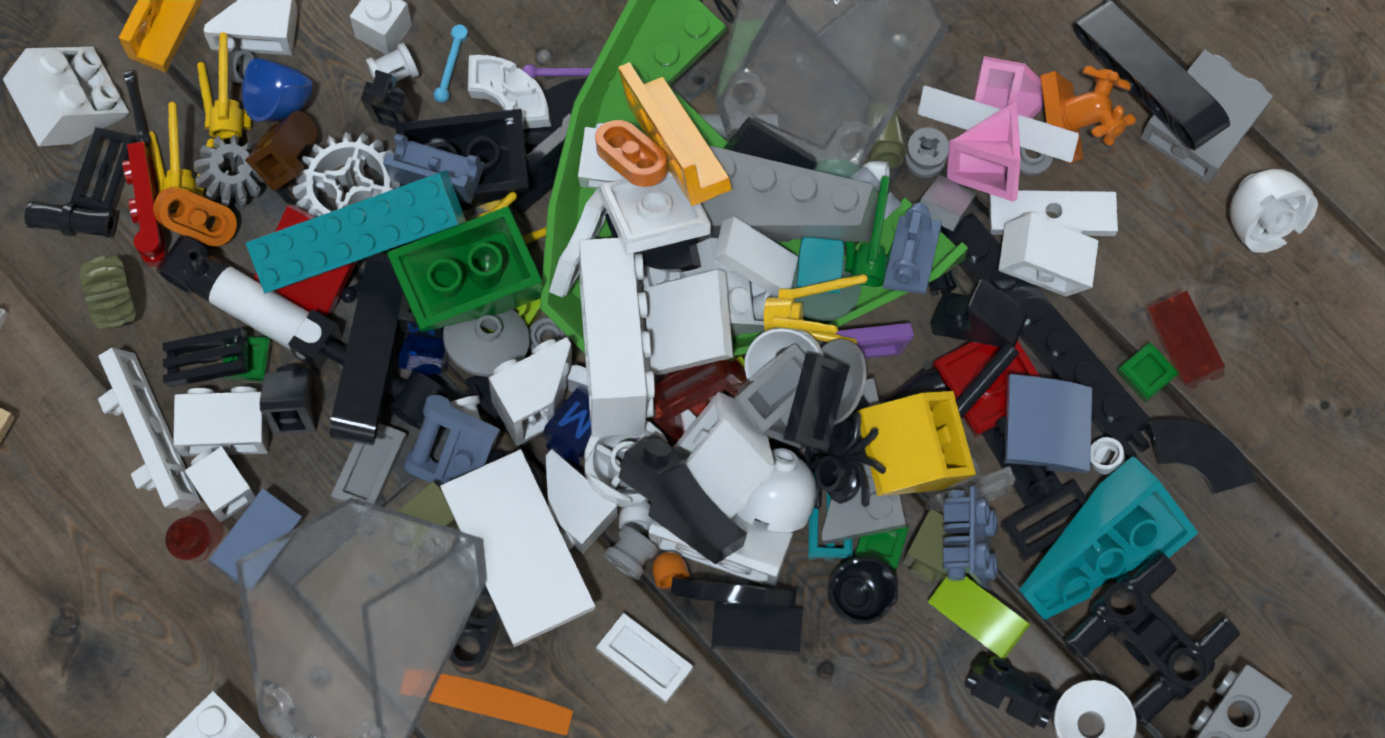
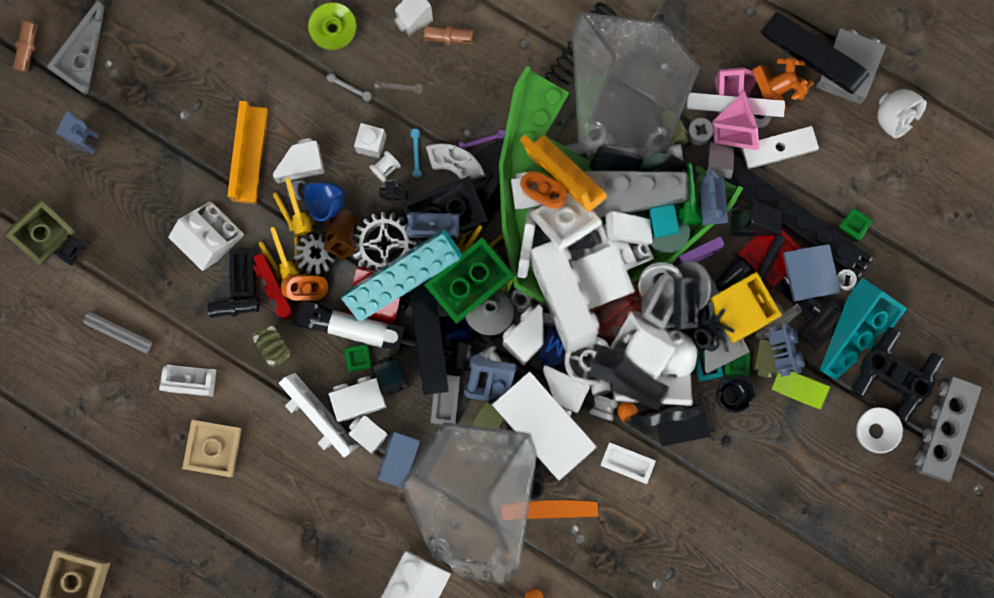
camera: 10 degrees left, 10 degrees up
(131, 84) = (257, 247): black hinge -> none
(175, 348) = (318, 373): black tile -> none
(183, 534) = (356, 472): clear red cone -> none
(785, 313) = (654, 256): yellow plant -> none
(1032, 697) = (841, 426): black hinge -> none
(1048, 254) = (785, 174): white brick -> none
(1187, 340) = (873, 201): clear red hinge -> none
(1202, 450) = (898, 262): black tile -> none

